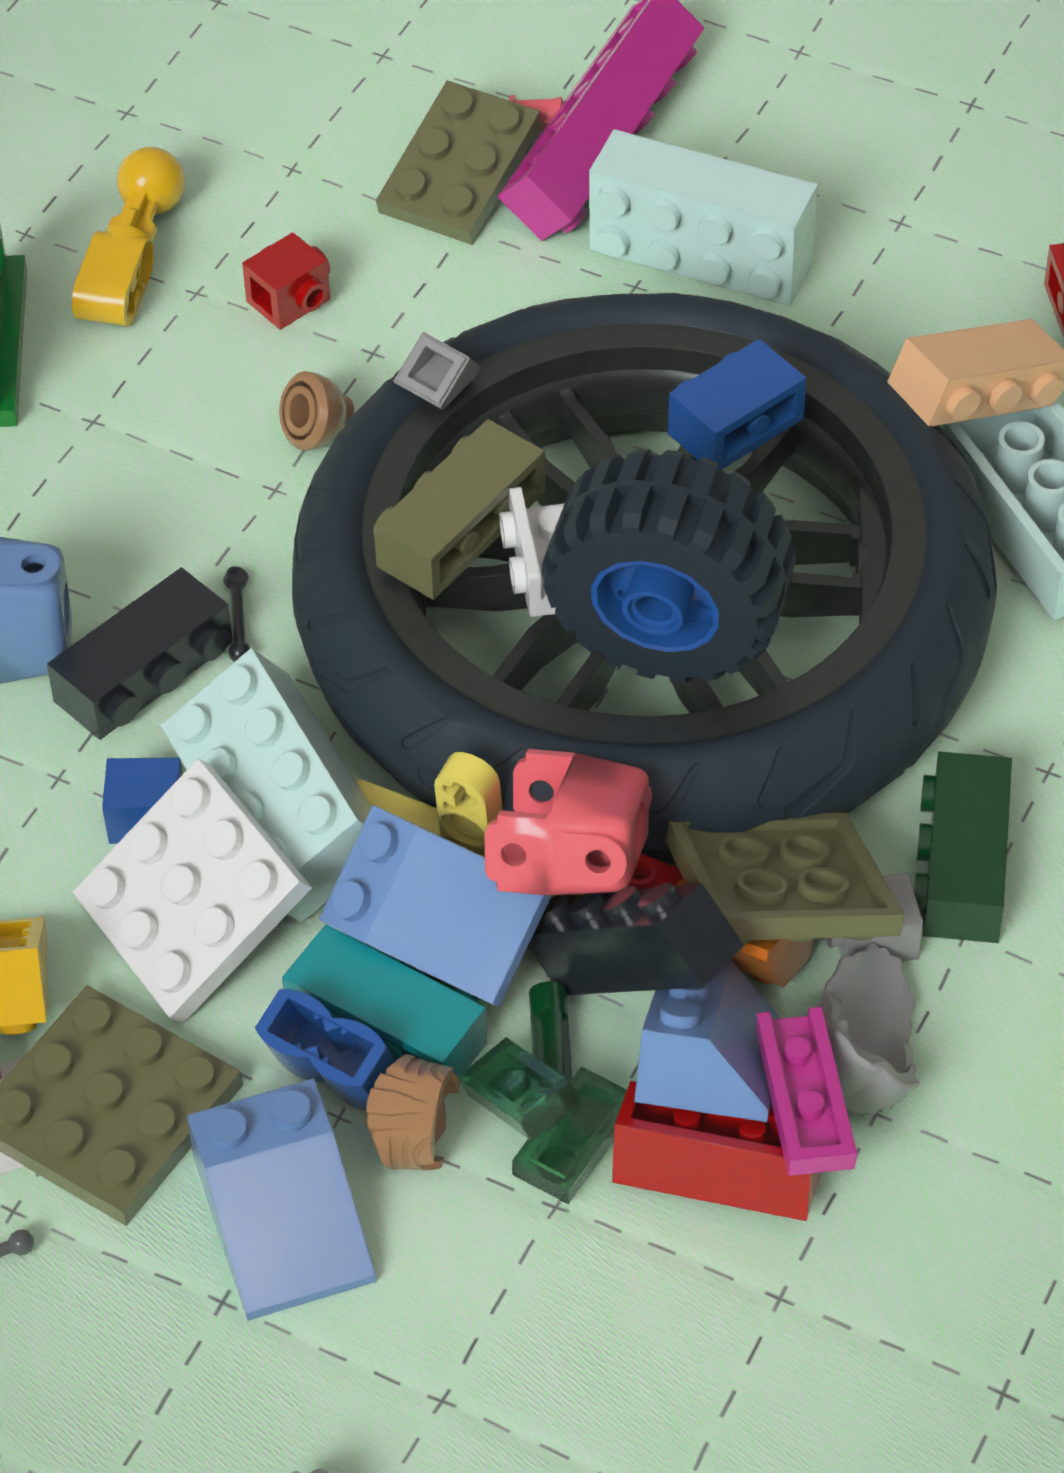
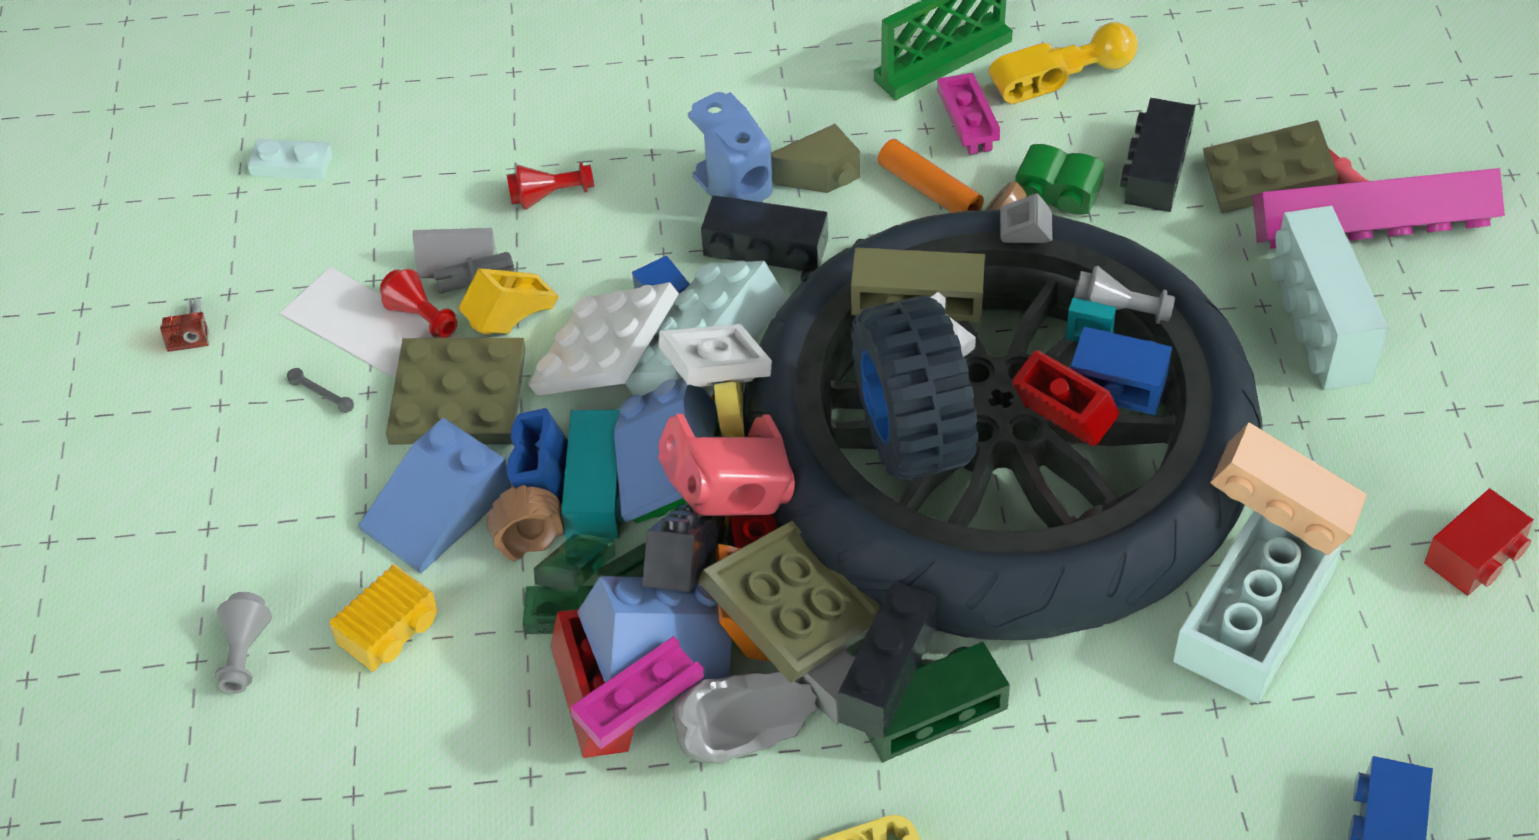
camera: 60 degrees right, 0 degrees up
(82, 527) = (817, 161): none -> olive slope
(117, 363) = (969, 112): none -> dark pink hinge
(196, 456) = (928, 178): none -> orange piece
(287, 280) = (1101, 139): red brick -> none
(317, 335) = (1061, 178): none -> green brick
(359, 237) = (1157, 154): none -> black brick
(384, 757) = (714, 354): none -> white plate
(441, 1341) = (384, 618): none -> yellow brick
(612, 362) = (1104, 289): none -> light grey piece
(646, 392) = (1090, 315): none -> teal plate
(770, 454) = (1065, 397): none -> red brick
(924, 835) = (887, 659): none -> black brick

